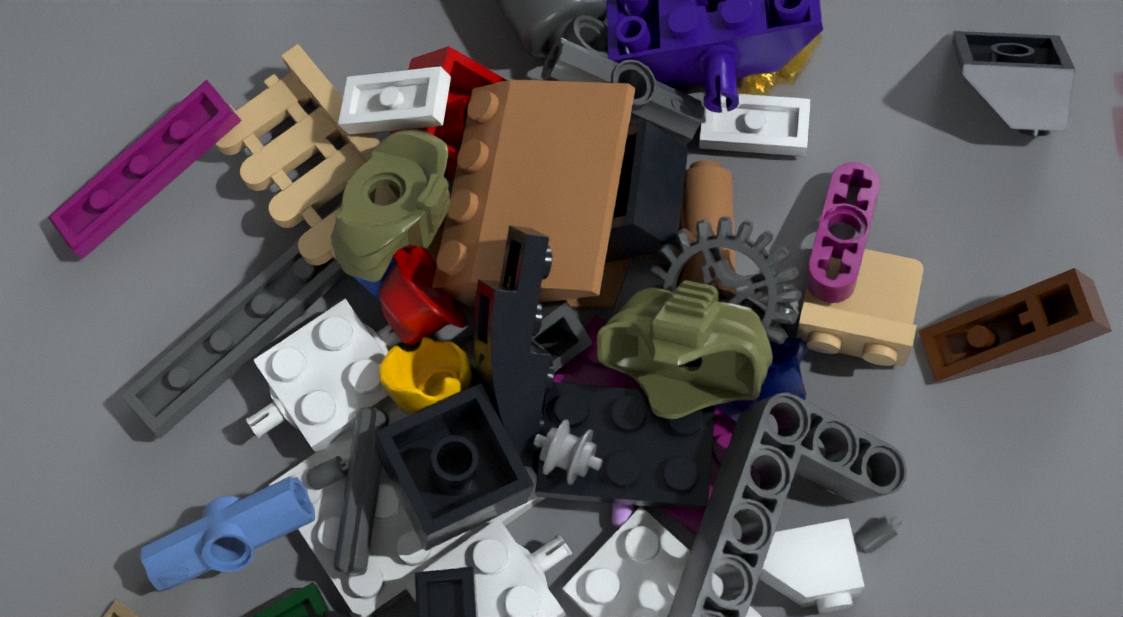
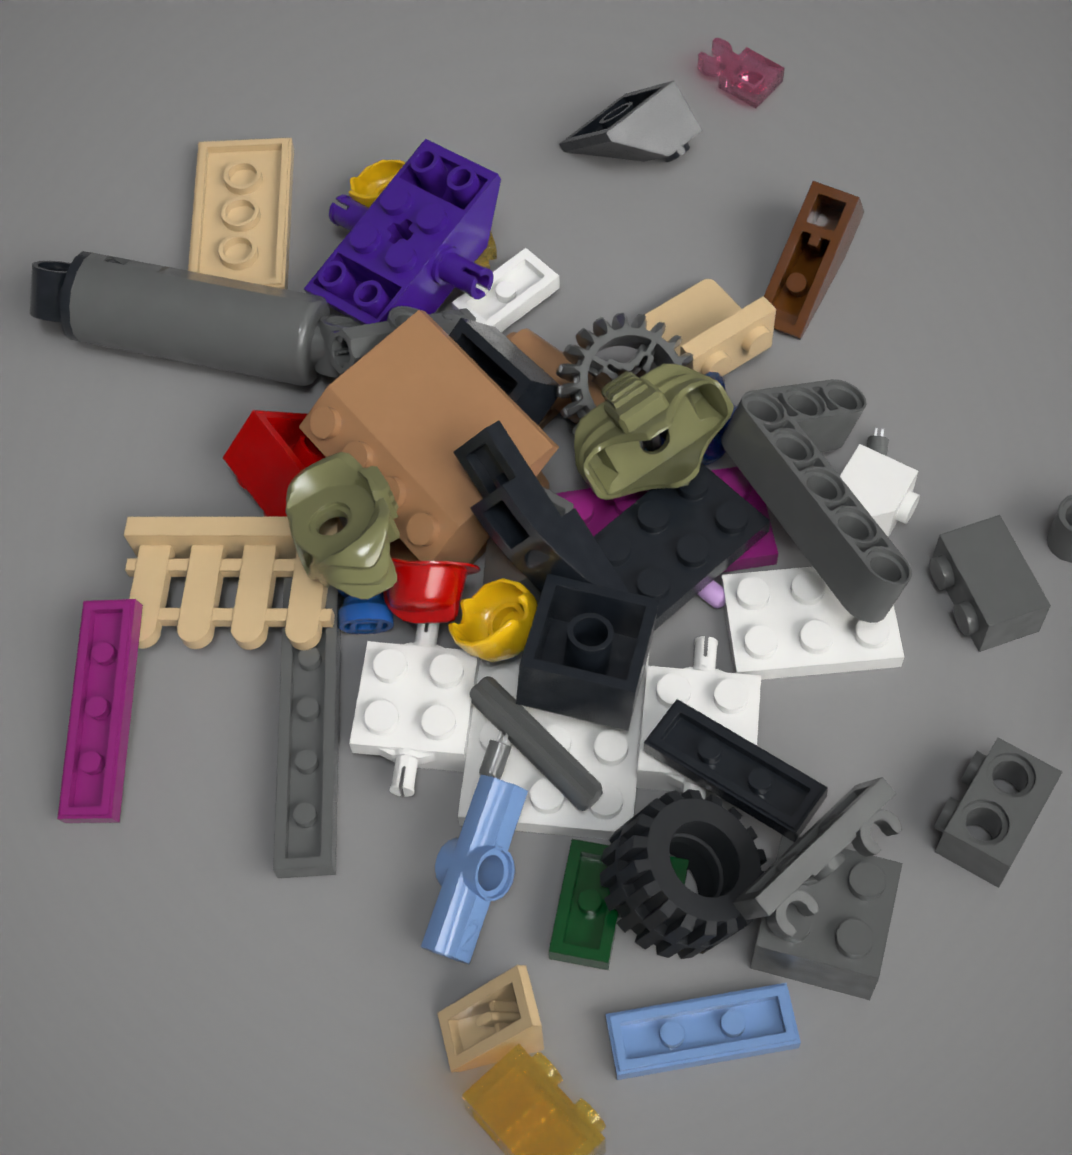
camera: 55 degrees left, 10 degrees down
(395, 100) = (258, 472): white plate -> none
(568, 452) = (653, 563): light grey wheel -> none
(829, 246) = (639, 283): magenta beam -> none

